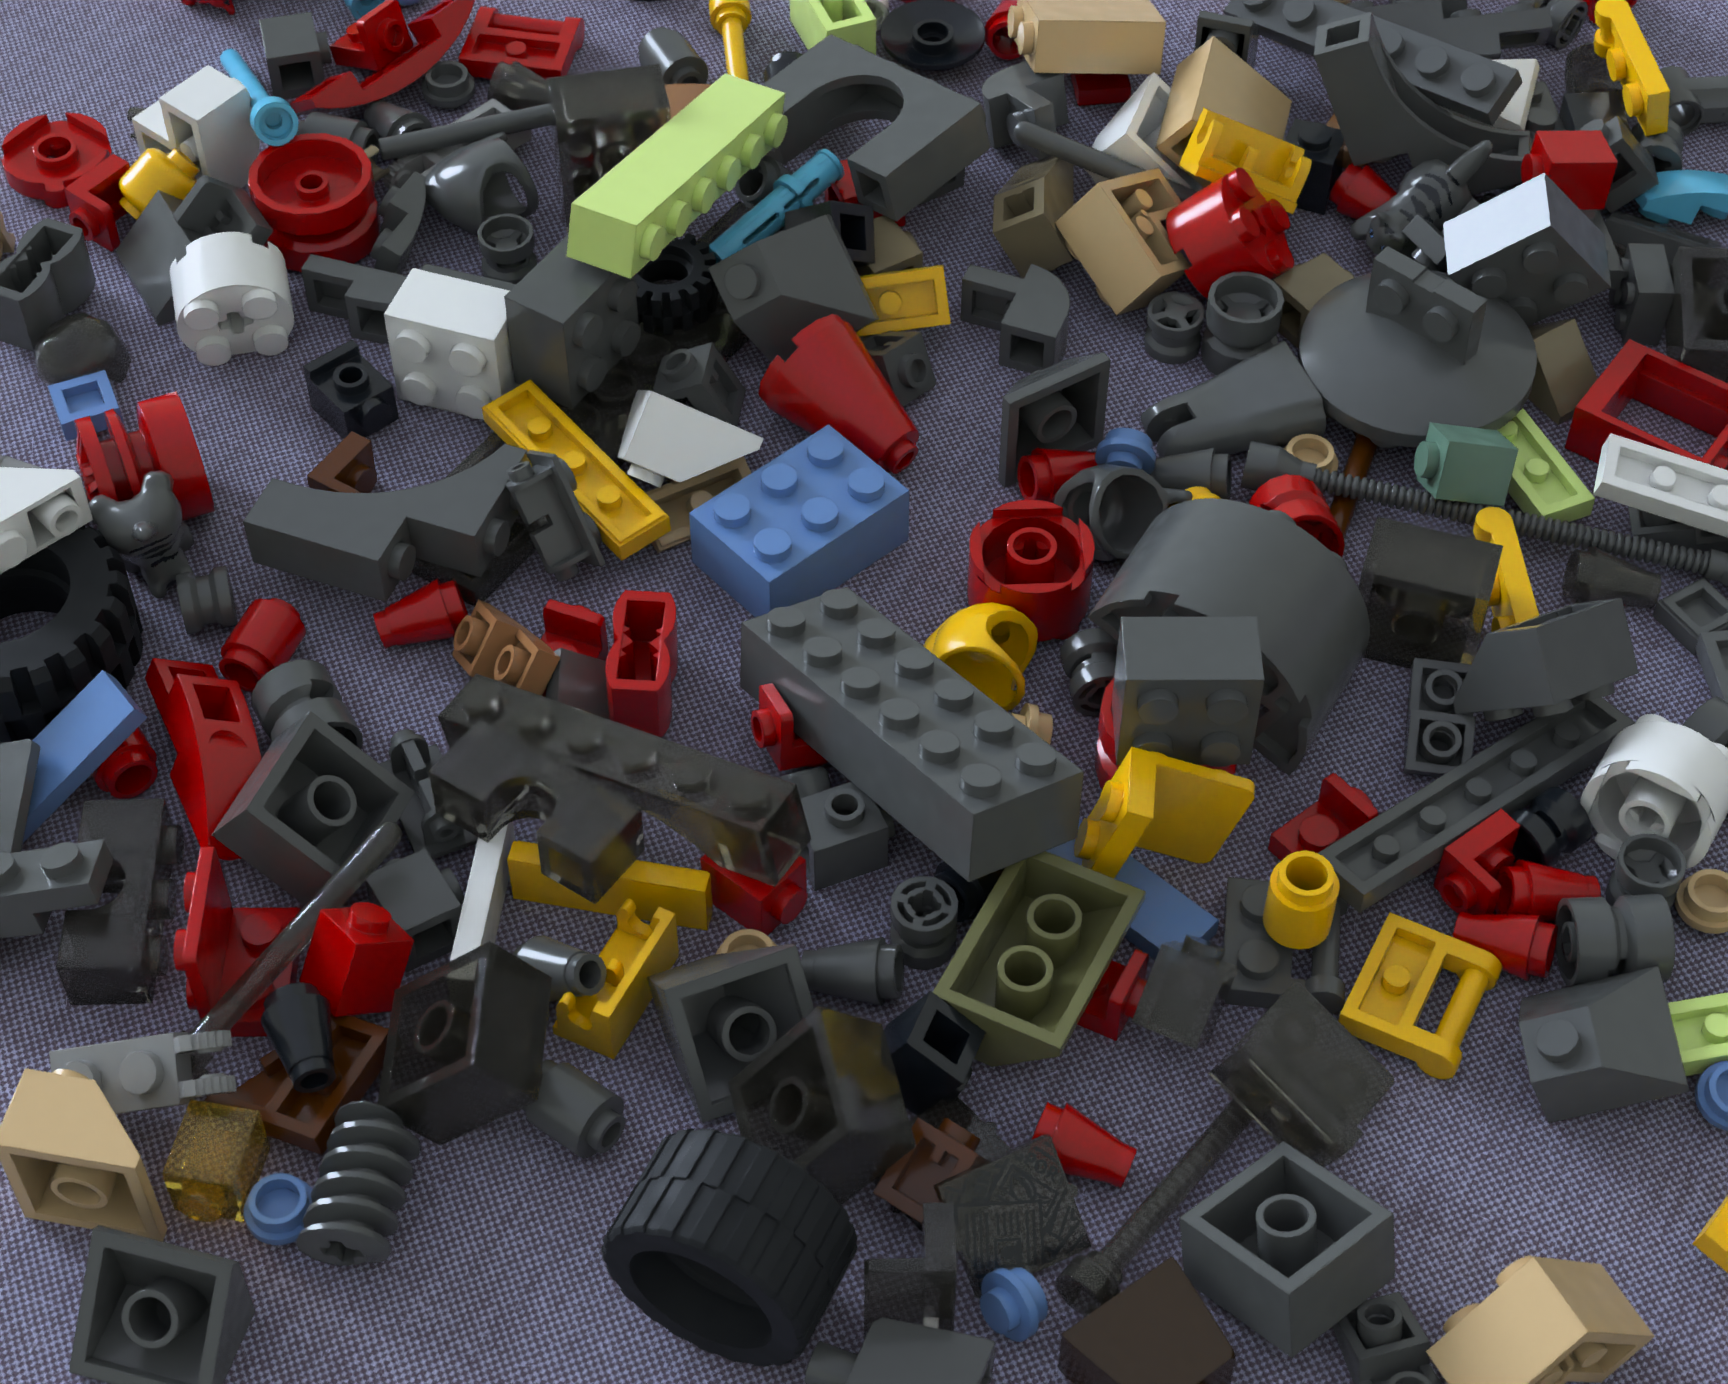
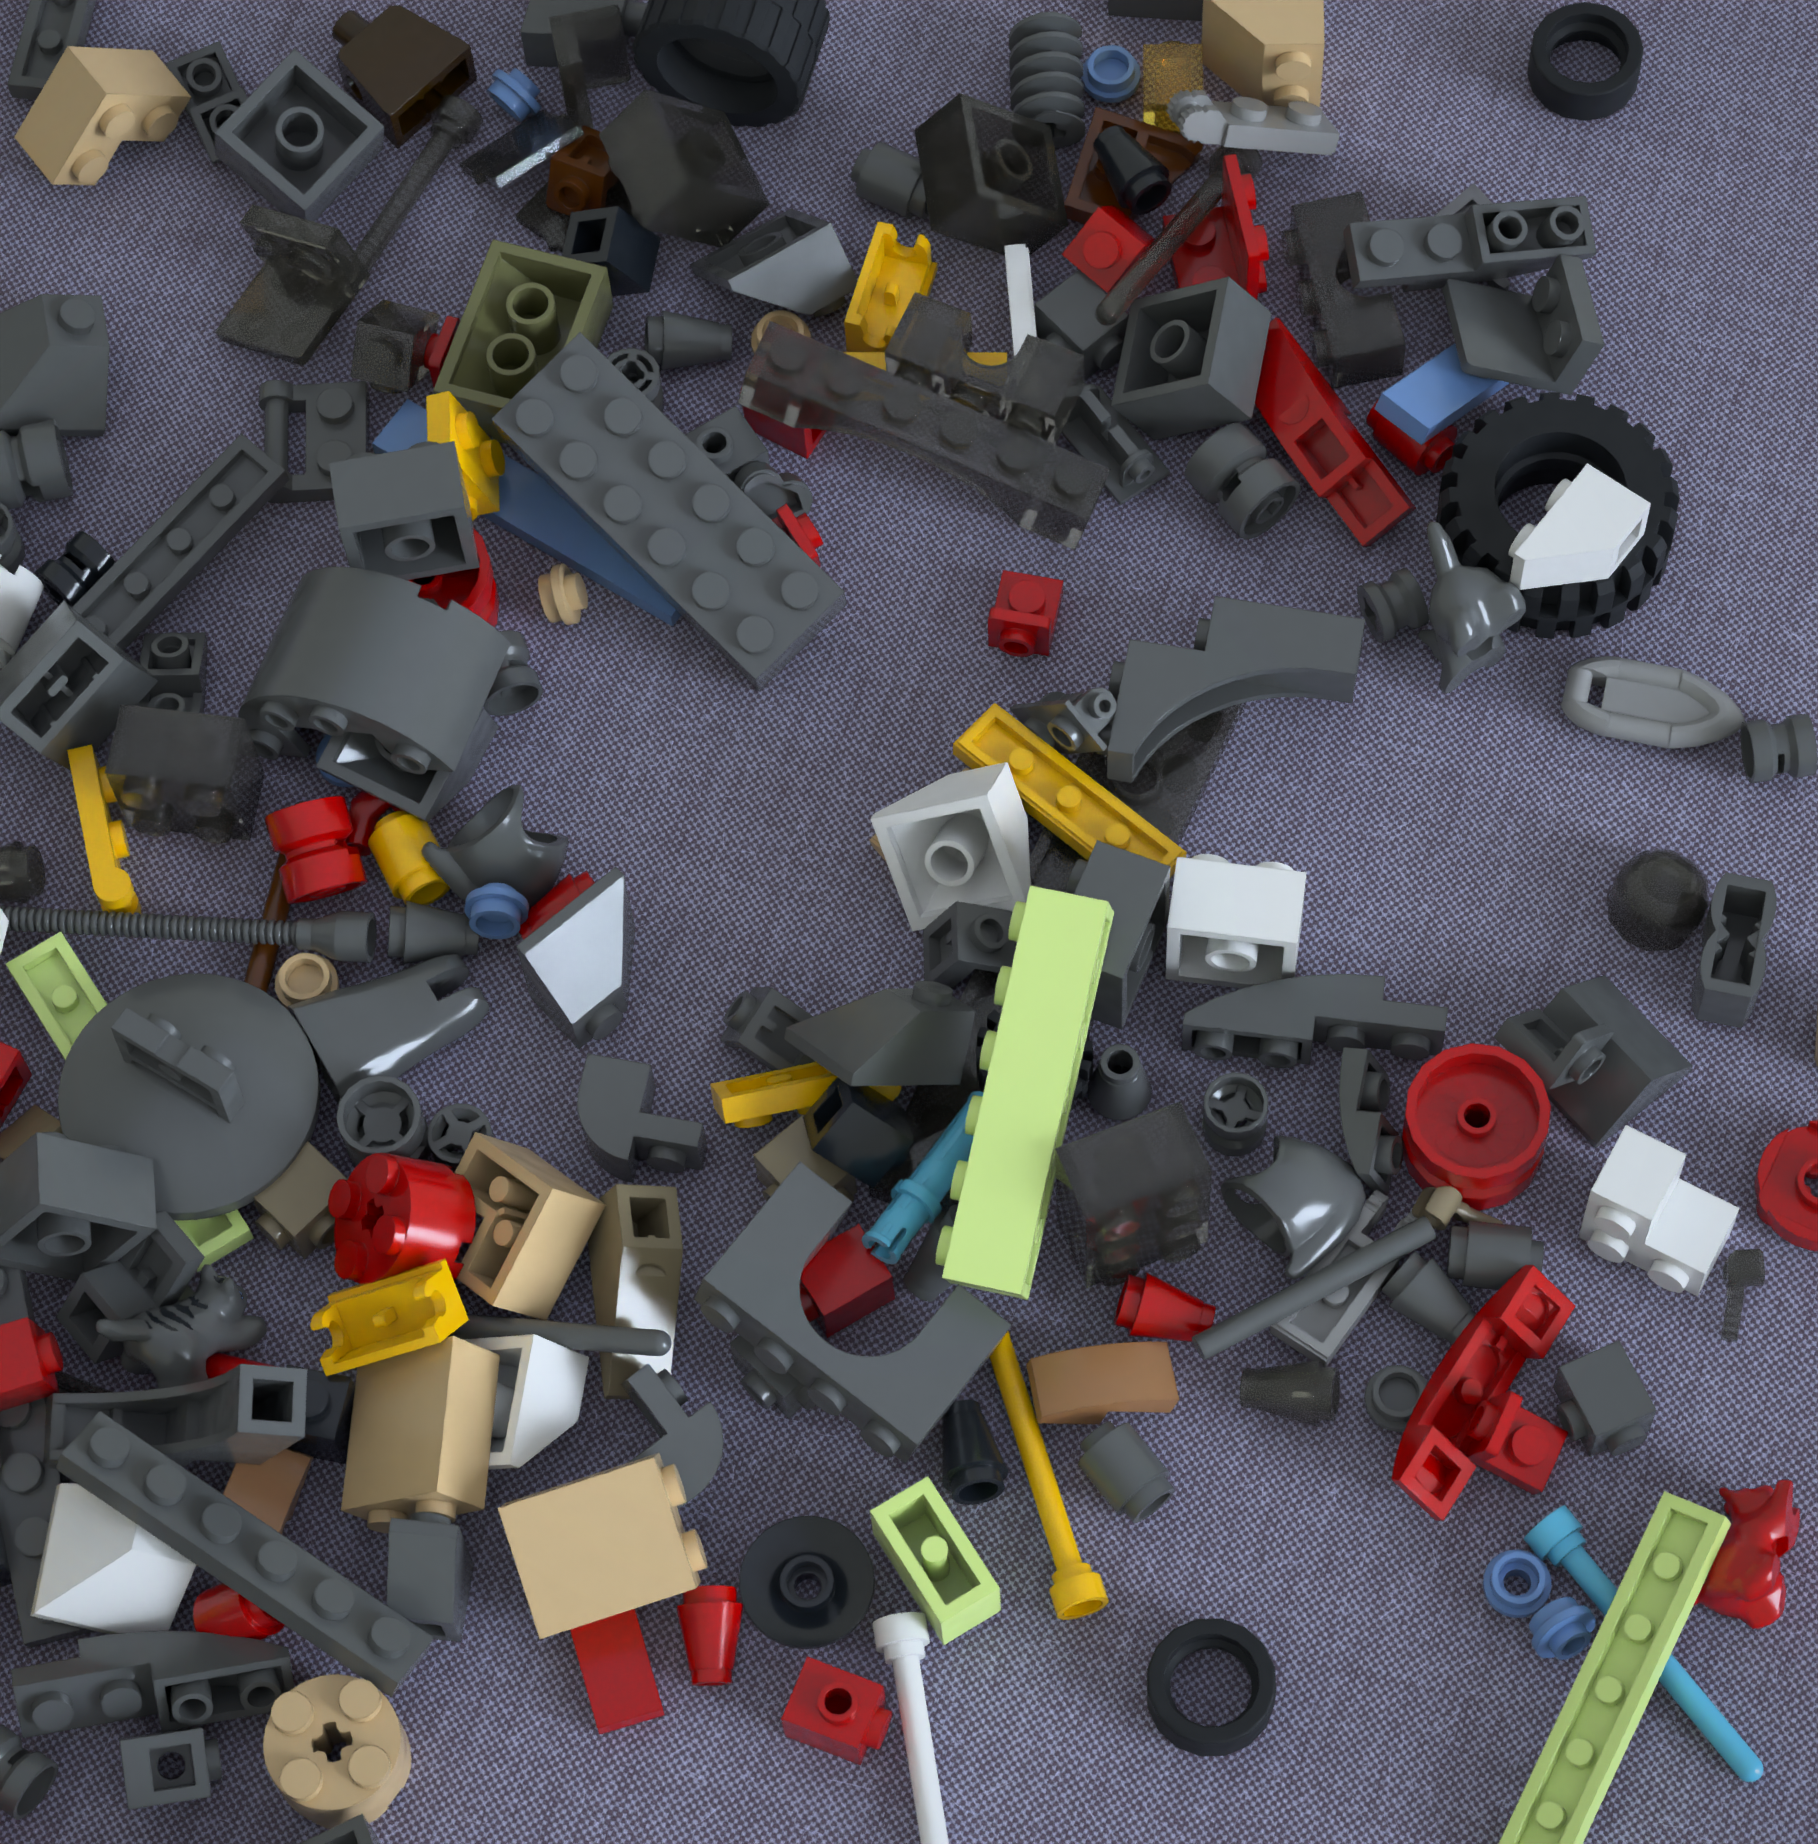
camera: 175 degrees right, 15 degrees up
(83, 397) = (1621, 826): medium blue plate -> none
(96, 204) = (1742, 1092): red bracket -> none
(154, 172) = (1673, 1116): yellow head -> none
(161, 443) = (1507, 710): red wheel -> none
(231, 298) = (1508, 954): white brick -> none
(261, 641) = (1320, 565): red brick -> none
(270, 116) = (1547, 1166): medium azure piece -> none
(346, 468) = (1309, 761): reddish brown bracket -> none
(350, 392) = (1346, 902): black brick -> none
(422, 615) = (1170, 623): red cone -> none
(503, 650) = (1095, 597): medium nougat slope -> none
(534, 42) = (1327, 1461): red plate -> none
(568, 966) = (938, 276): dark grey cone -> none
(579, 683) = (997, 562): dark grey tile -> none
(643, 661) = (939, 583): red brick -> none
(800, 524) = (818, 781): medium blue brick -> none
(840, 385) = (810, 943): red cone -> none
(988, 648) = (632, 670): yellow piece -> none
(1034, 563) = (580, 757): red brick -> none
(1085, 1146) = (475, 222): red cone -> none
(1301, 900) = (296, 415): yellow brick -> none
(1332, 817) = (279, 549): red bracket -> none
(1398, 984) = (210, 412): yellow plate -> none
(1465, 464) = (140, 950): sand green brick -> none
(1471, 864) = (147, 506): red bracket -> none
(1518, 940) = (114, 464): red cone -> none
(1539, 888) = (87, 509): red cone -> none

